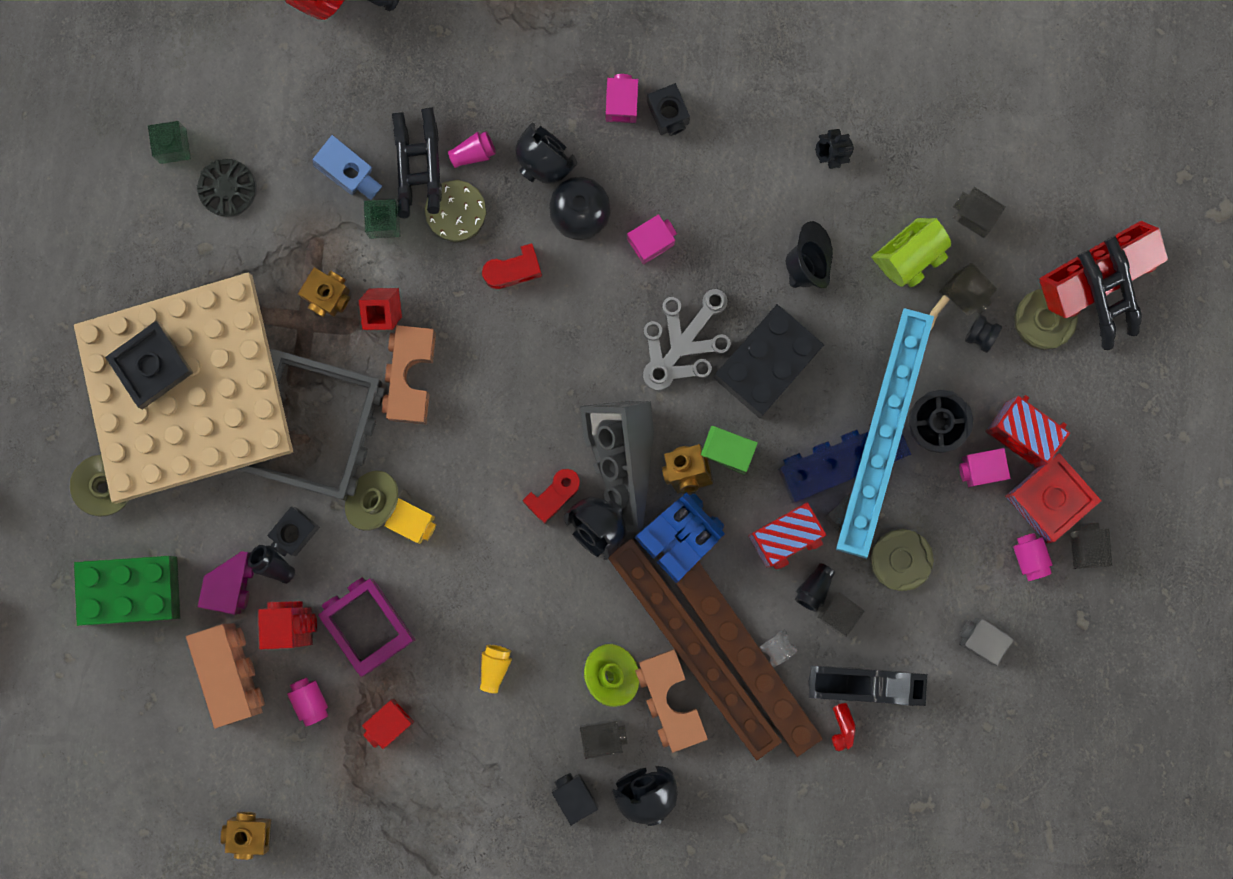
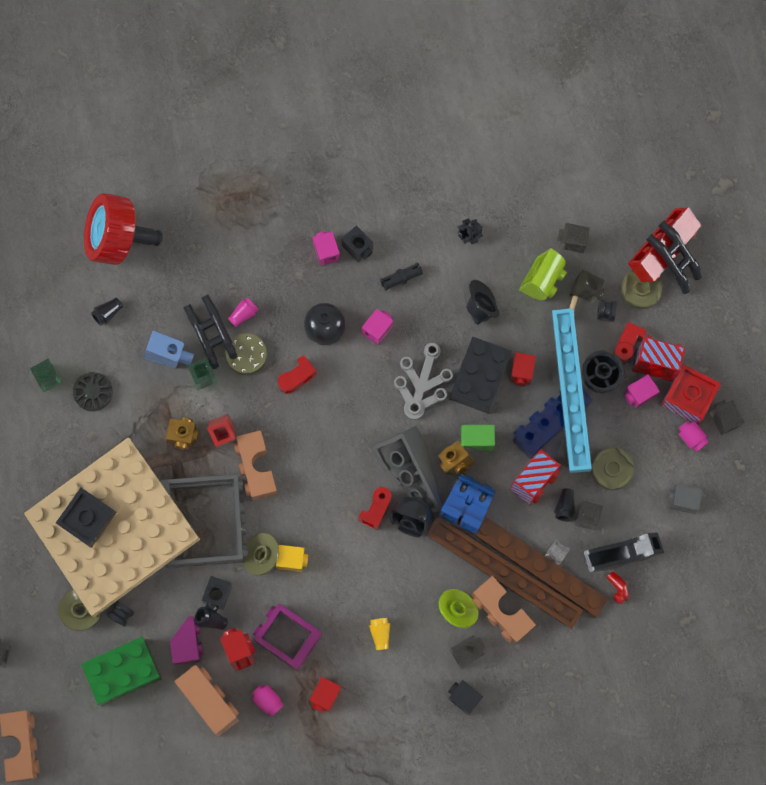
camera: 25 degrees left, 10 degrees down
(154, 511) = (120, 613): none -> black wheel
(284, 80) = (105, 312): none -> black cone
(543, 156) = (289, 300): black cylinder -> none
(647, 796) = (511, 678): black cylinder -> none
(712, 179) = (401, 276): none -> black pin
(830, 374) = (522, 369): none -> red brick
(986, 396) = (625, 345): none -> red leg

